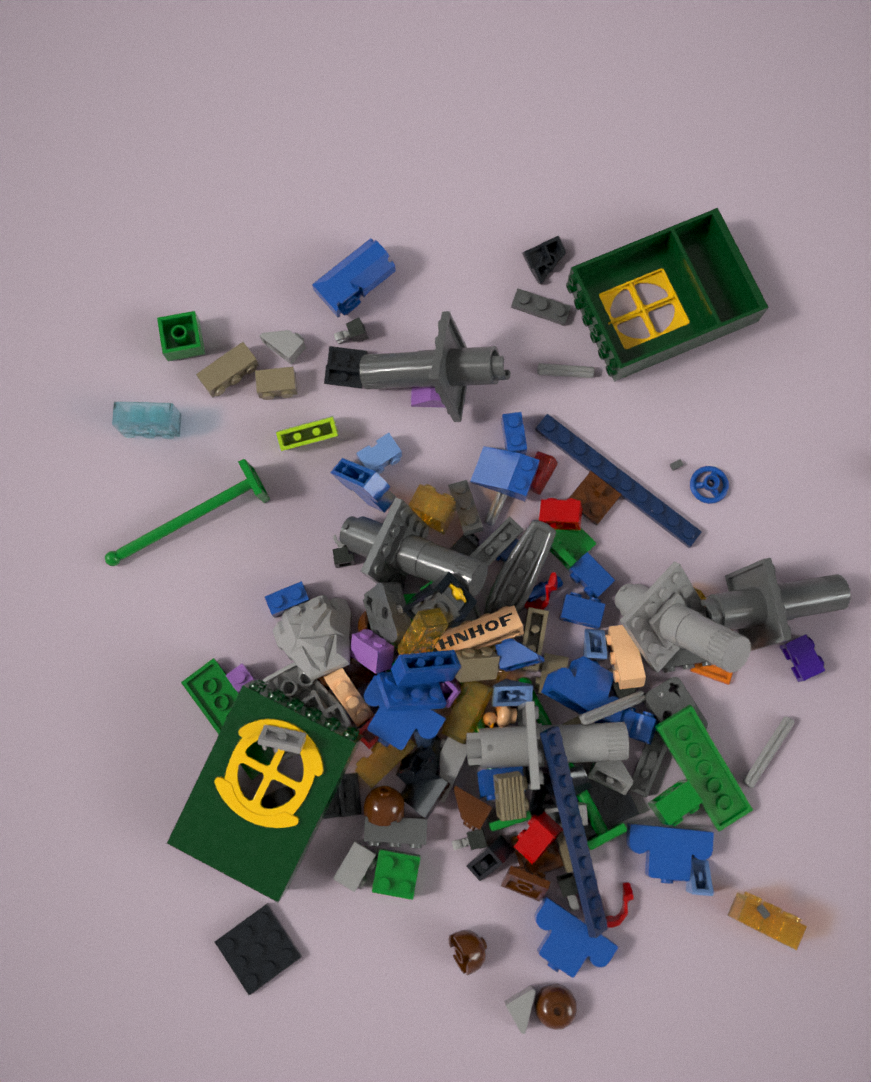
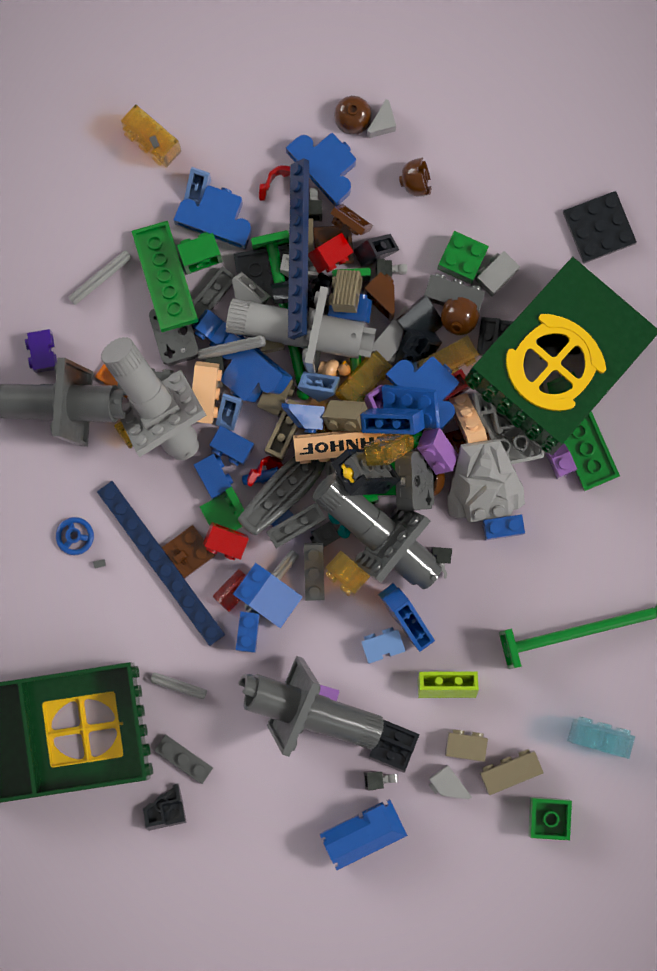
camera: 165 degrees left, 5 degrees up
(281, 739) = (537, 386): light grey plate -> none

